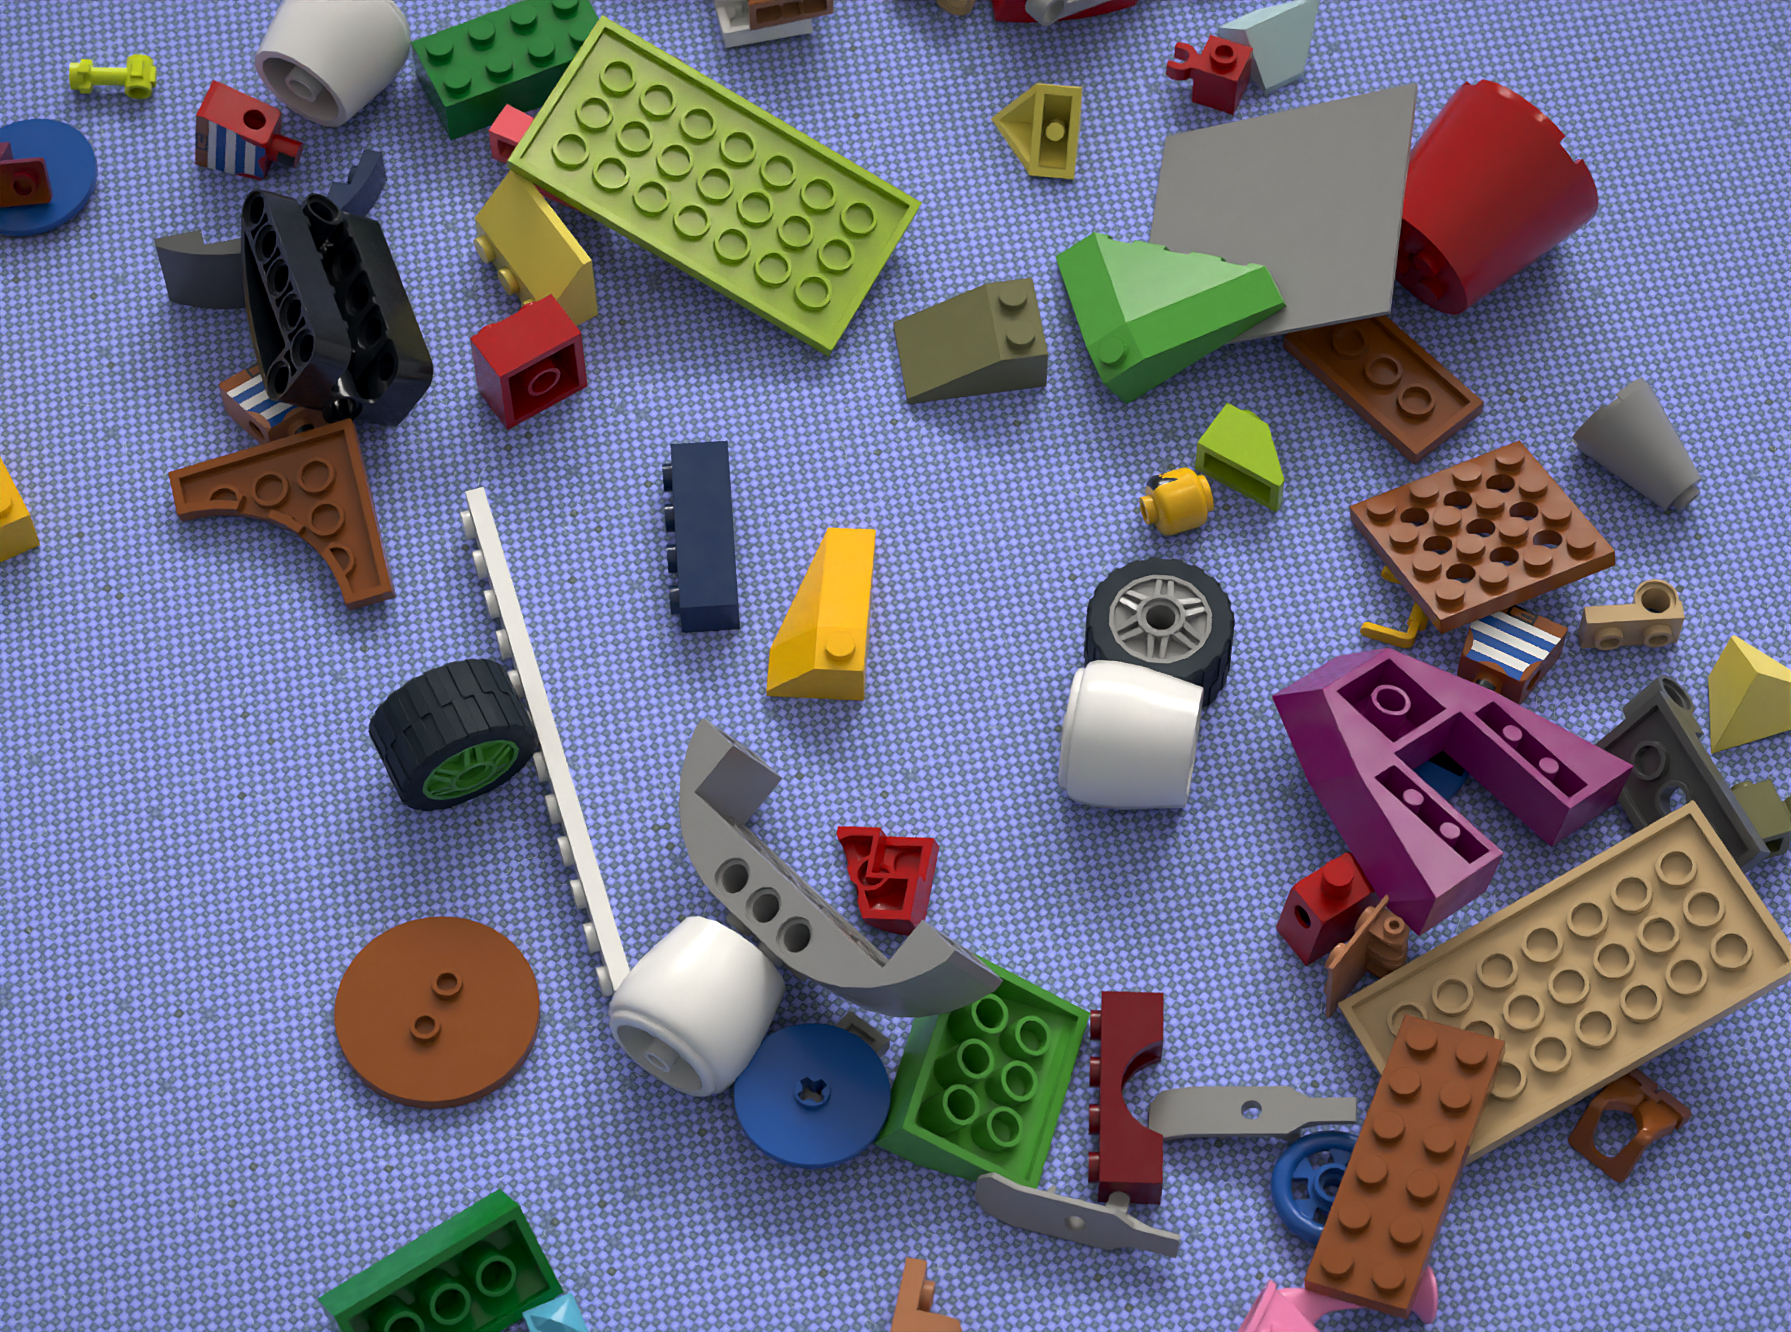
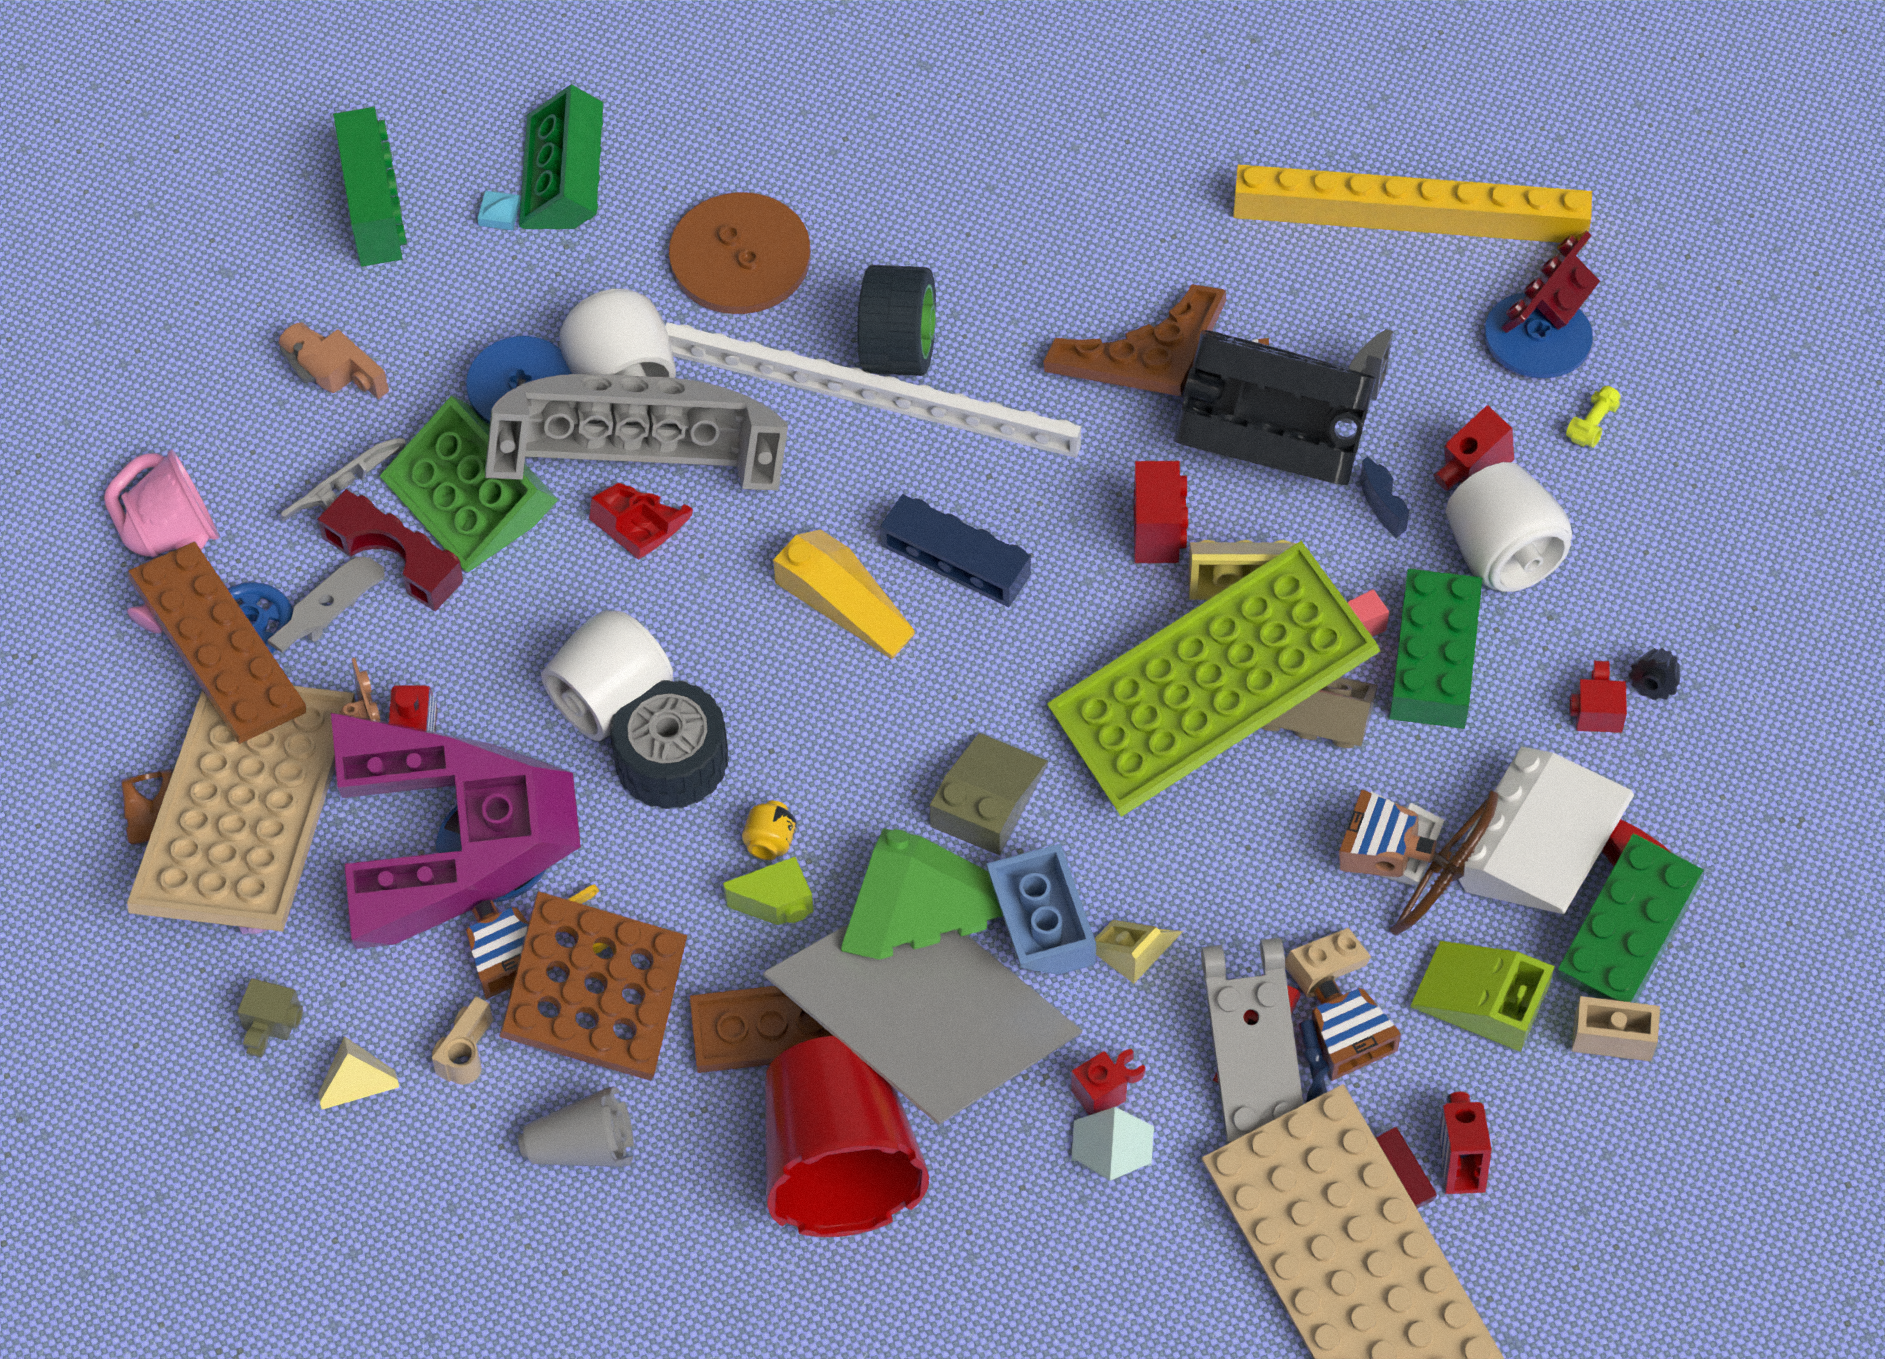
camera: 125 degrees right, 0 degrees up
(1078, 203) = (1043, 911): none -> medium blue slope
(1667, 755) = (354, 970): dark grey hinge -> none

